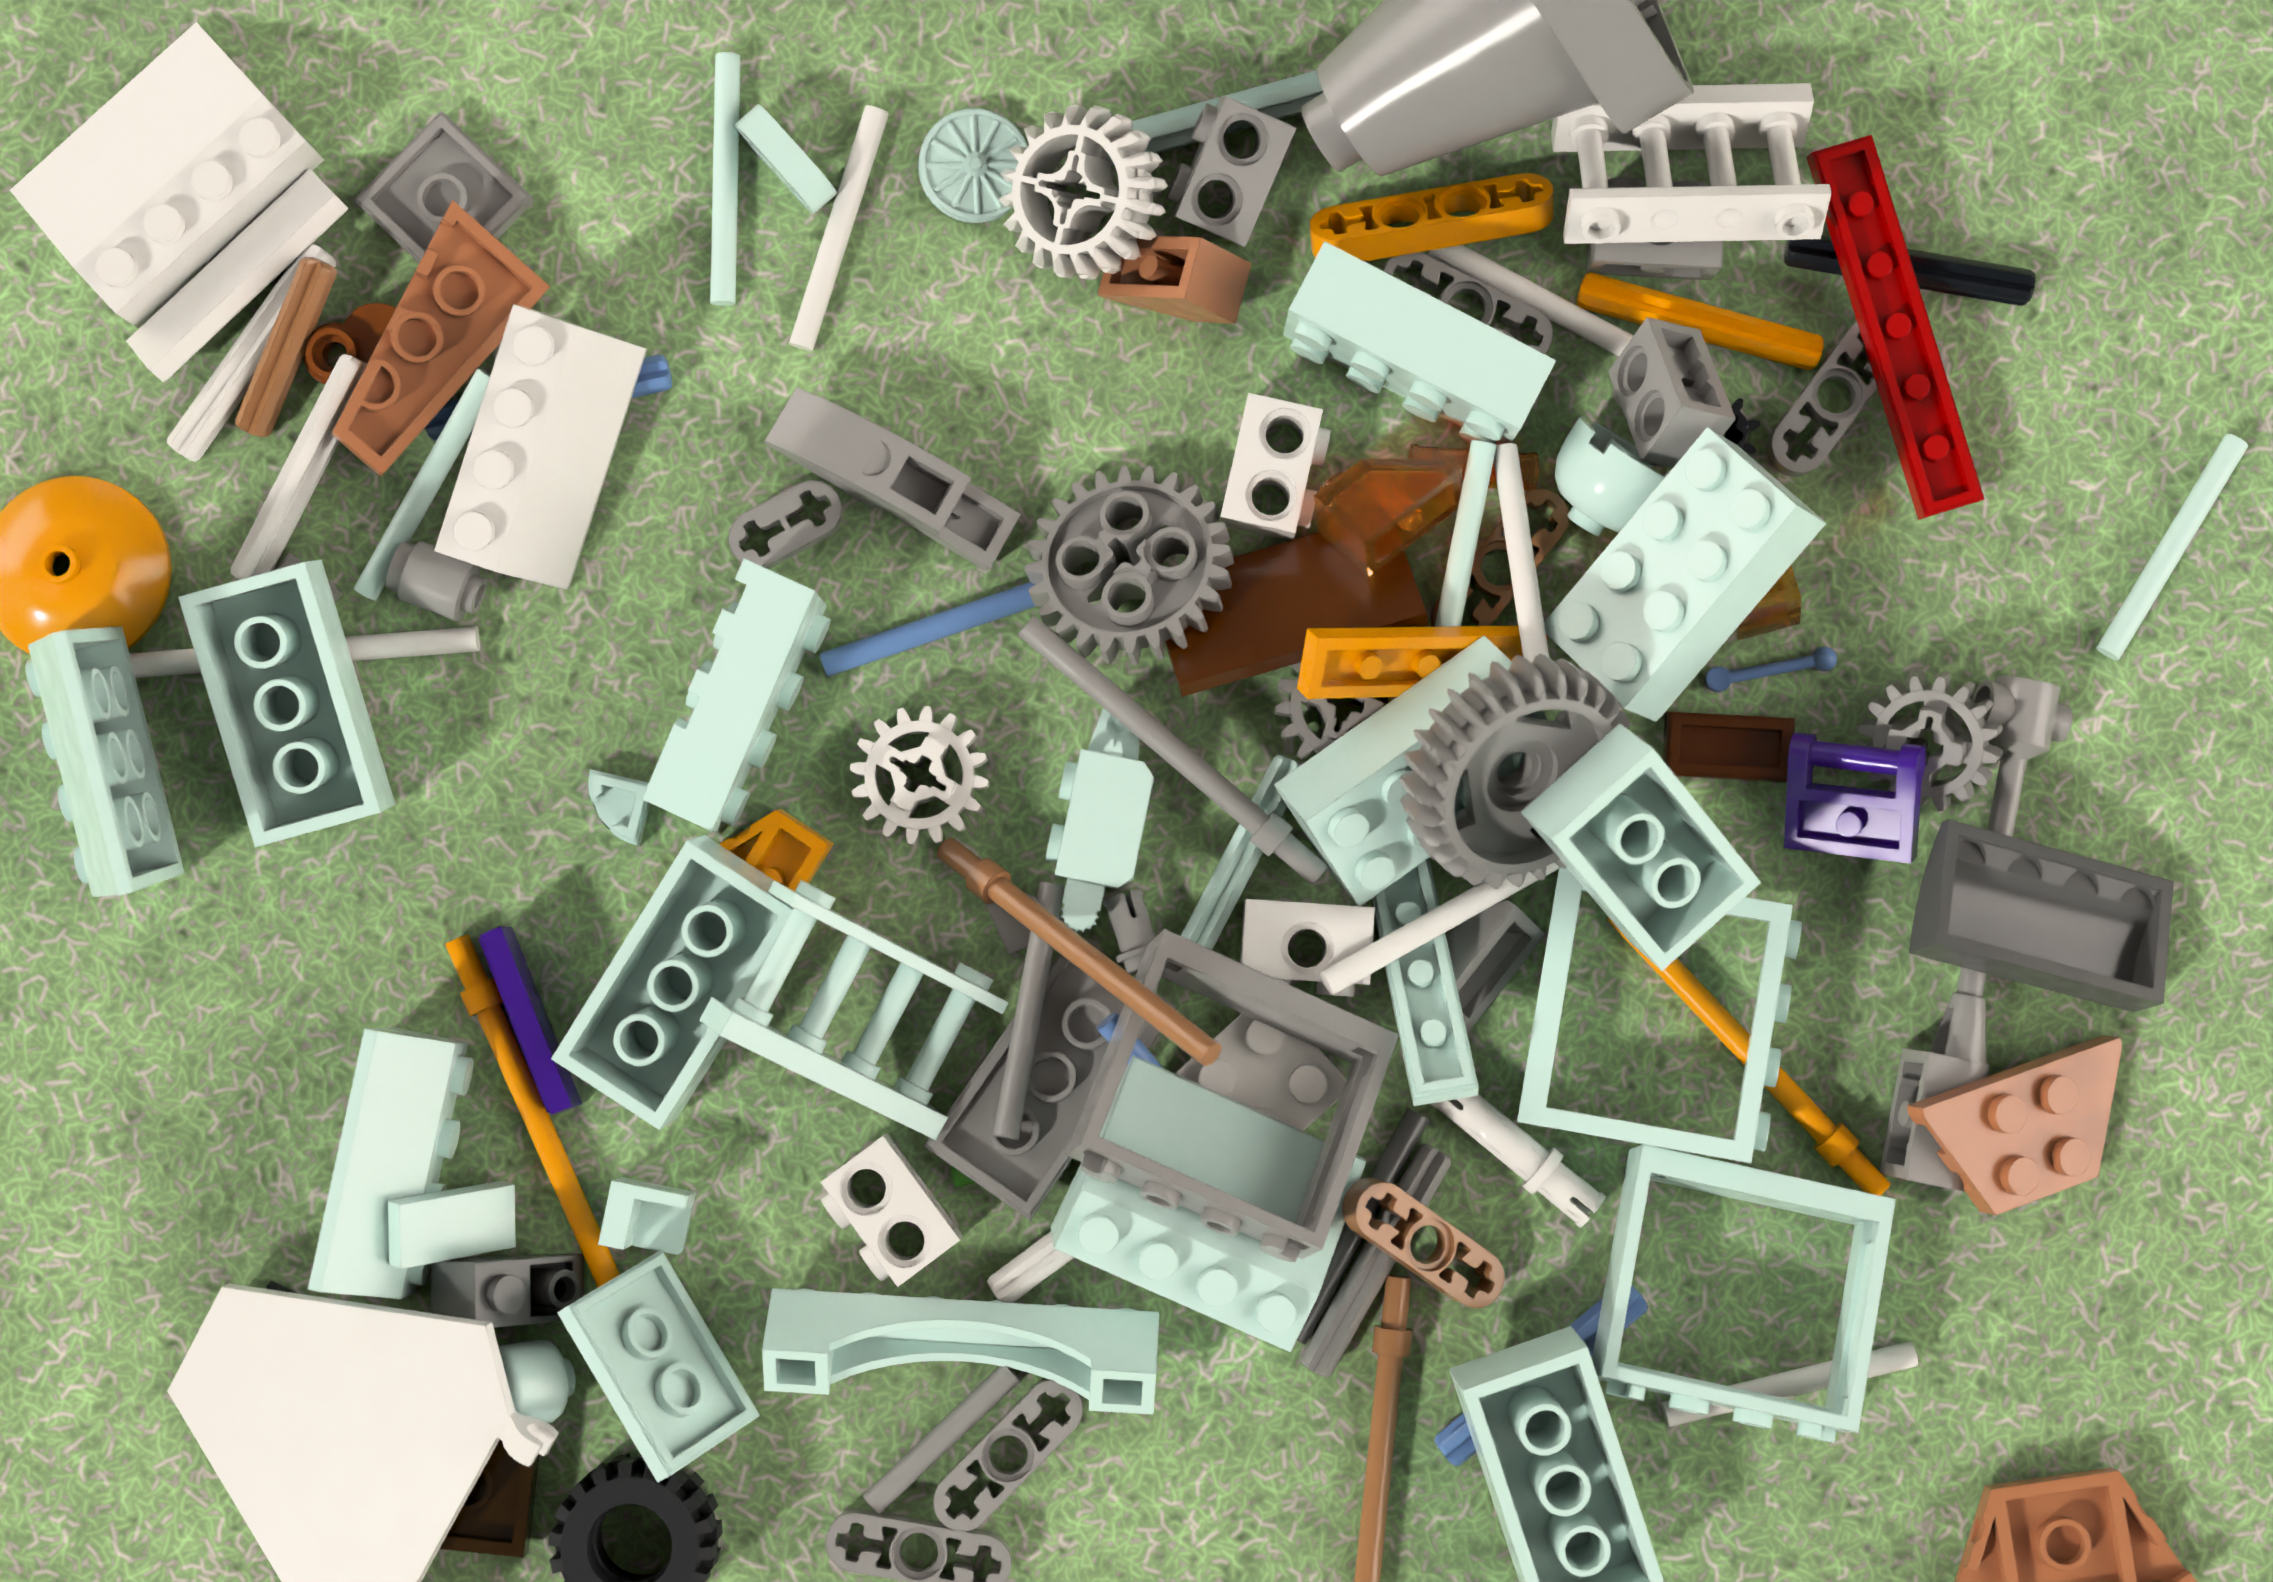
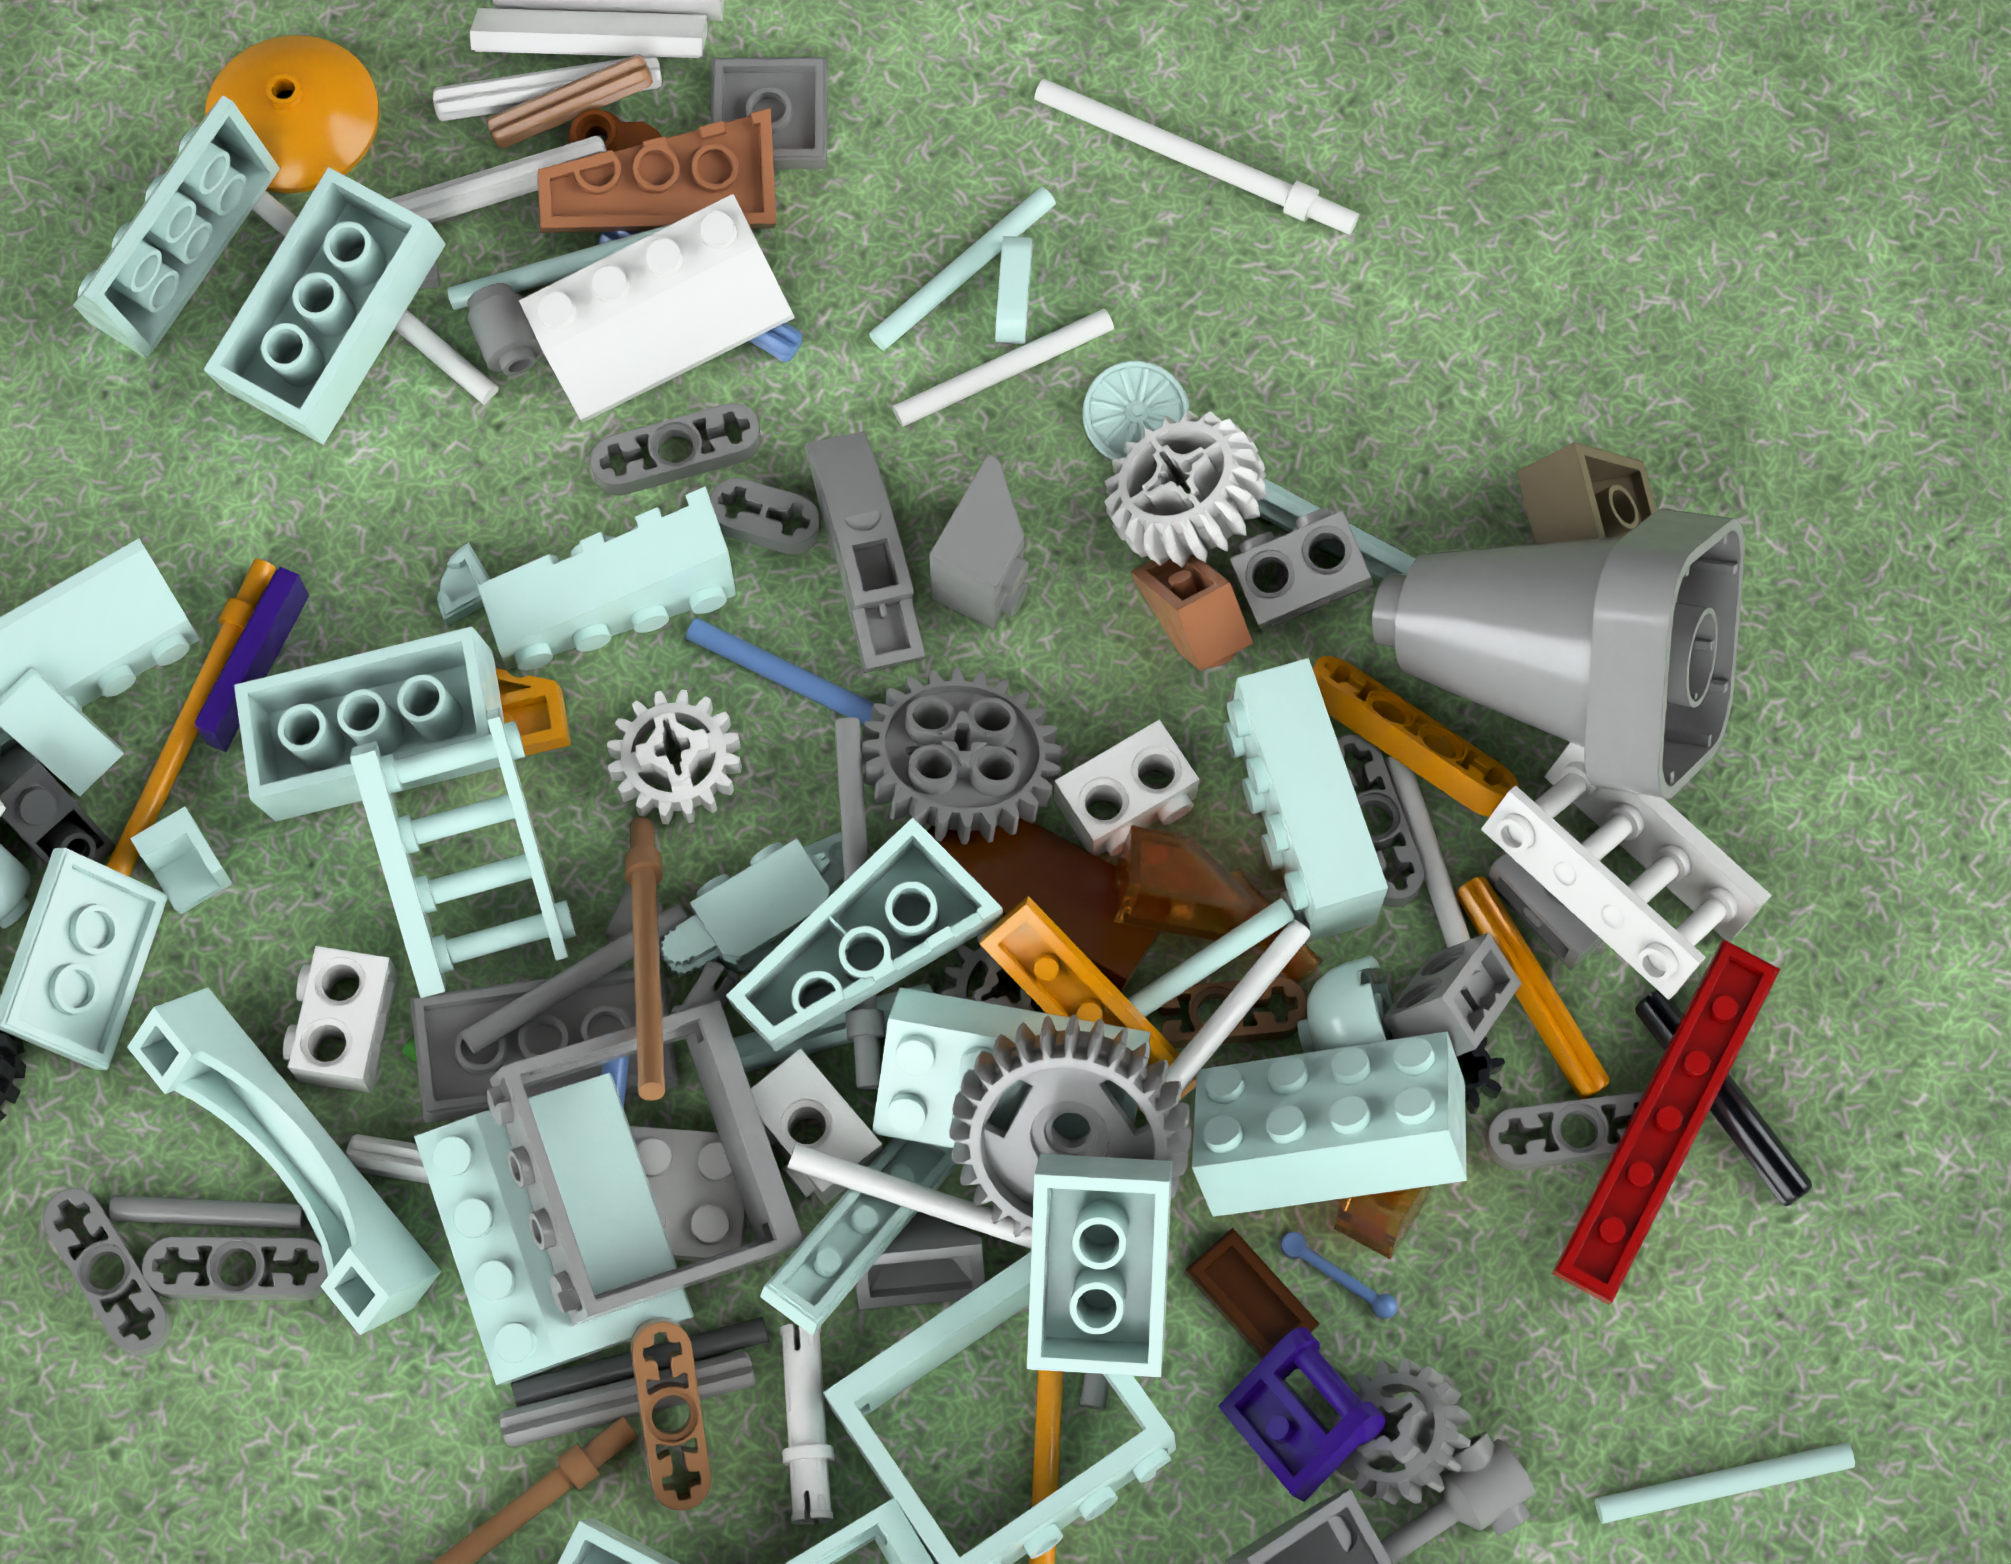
camera: 45 degrees right, 15 degrees down
(698, 505) = (688, 427): none -> light grey beam
(990, 391) = (980, 553): none -> light grey slope
(1222, 777) = (872, 932): none -> light aqua wedge

